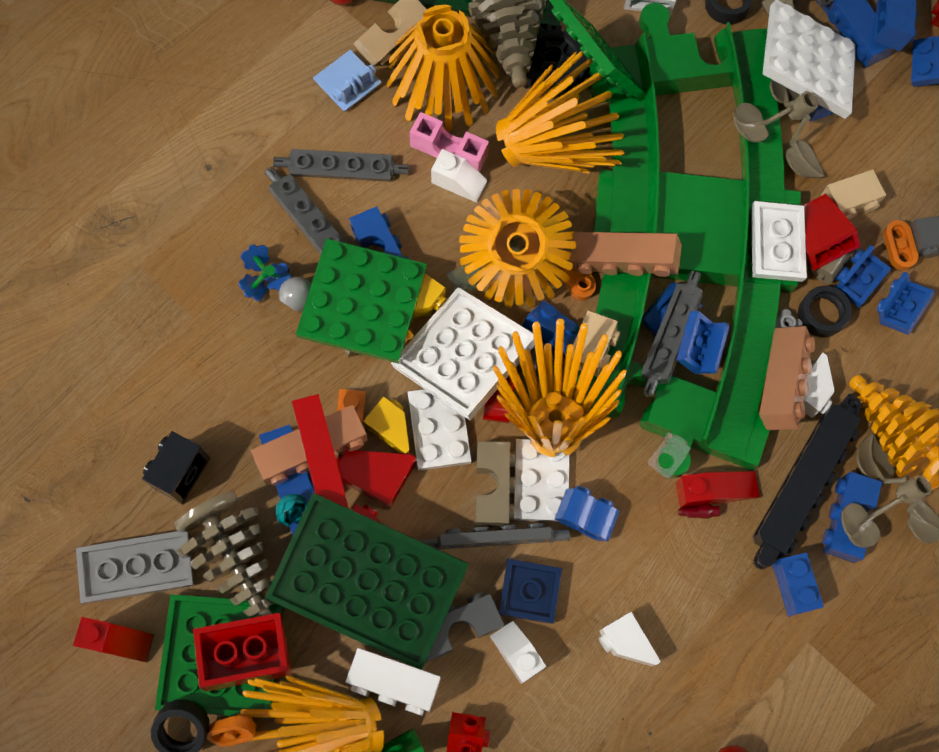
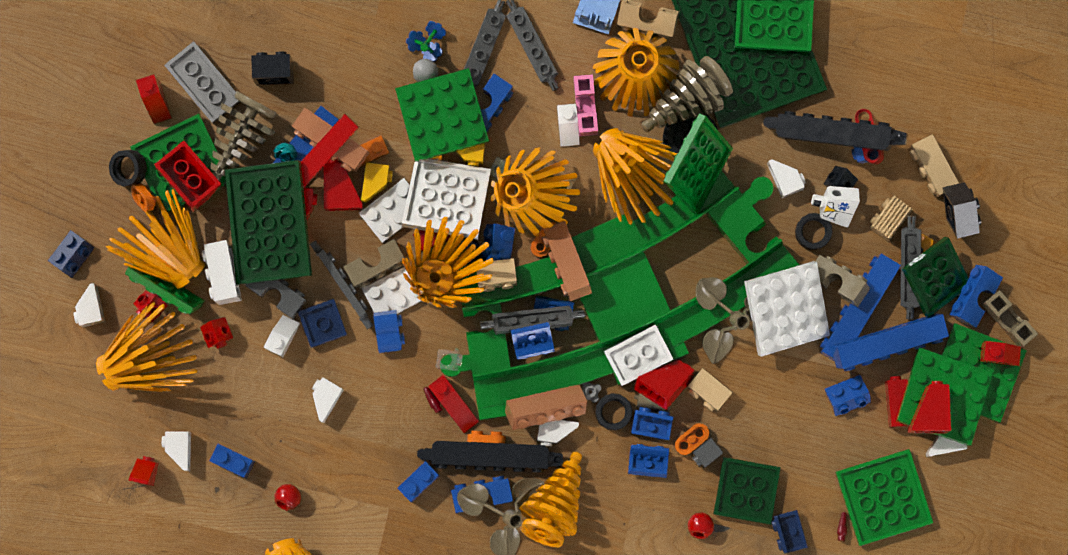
camera: 65 degrees right, 10 degrees up
(776, 481) = (477, 436): none -> orange plate

